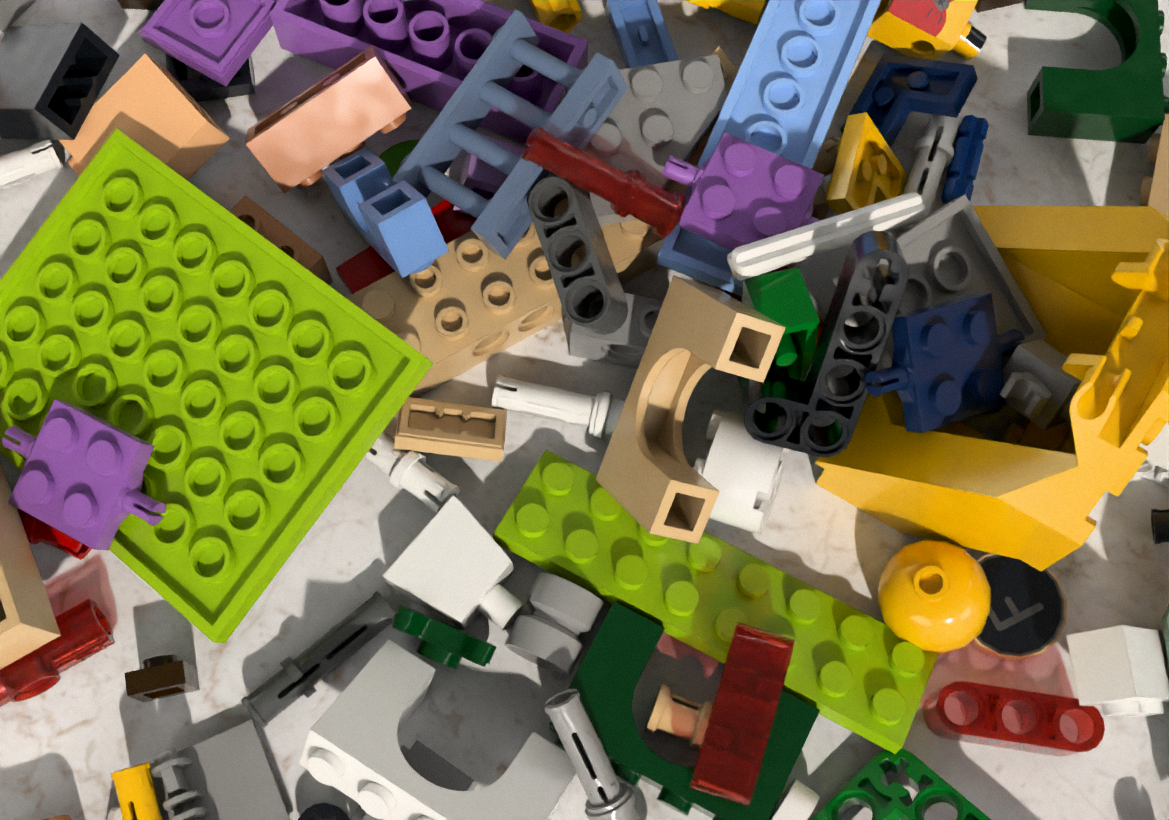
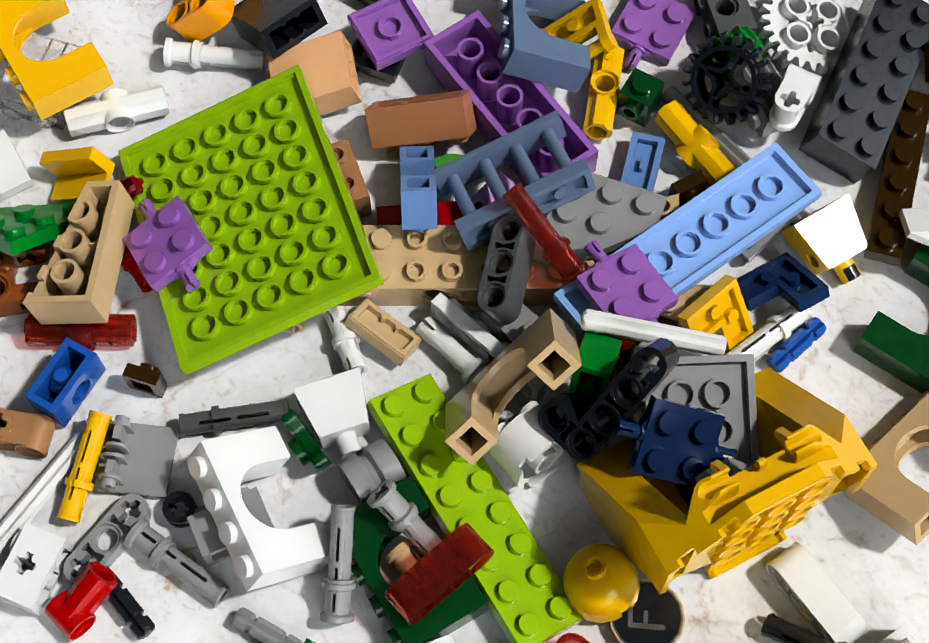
camera: 35 degrees right, 5 degrees down
(48, 752) = (65, 382): none -> blue brick
(574, 367) = (477, 338): none -> white plate
(648, 664) = (403, 516): none -> light grey pin
(722, 32) = (688, 187): none -> dark brown plate

